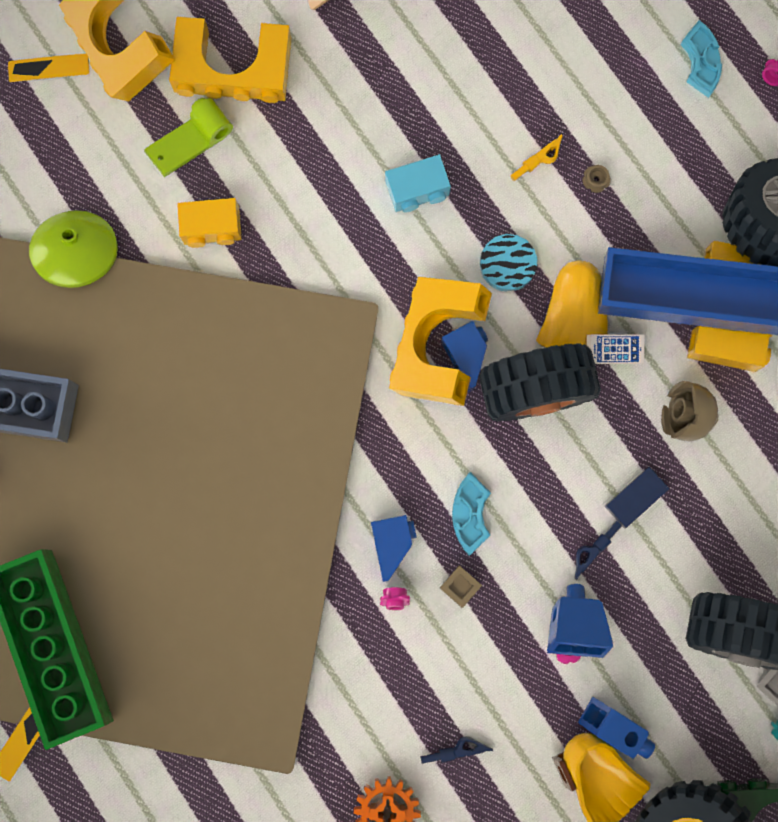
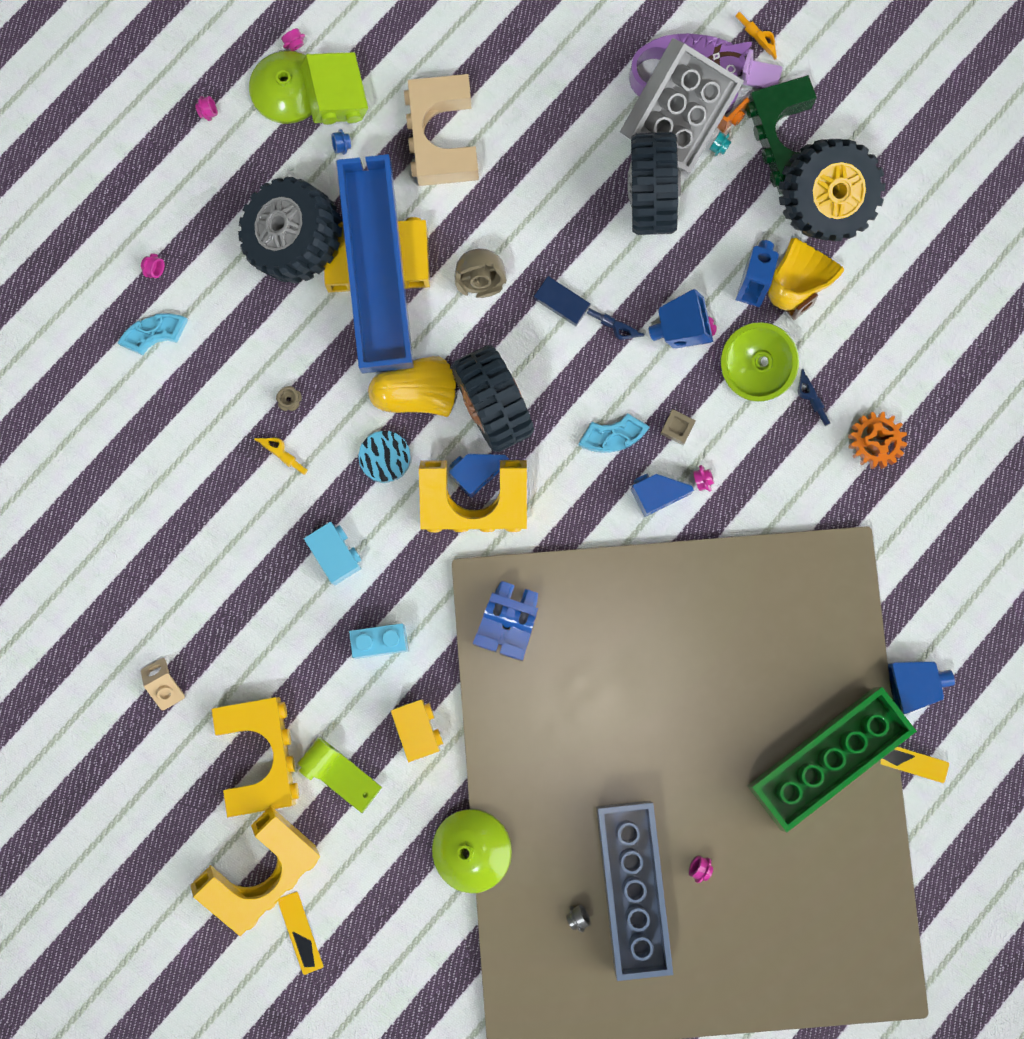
camera: 105 degrees left, 0 degrees up
(102, 772) = (917, 684): none -> blue torso
(292, 324) = (490, 631): none -> hips
(312, 207) = (378, 641): none -> medium azure brick
(506, 683) = (743, 365): none -> lime dish
(616, 348) = (439, 346): tile -> none

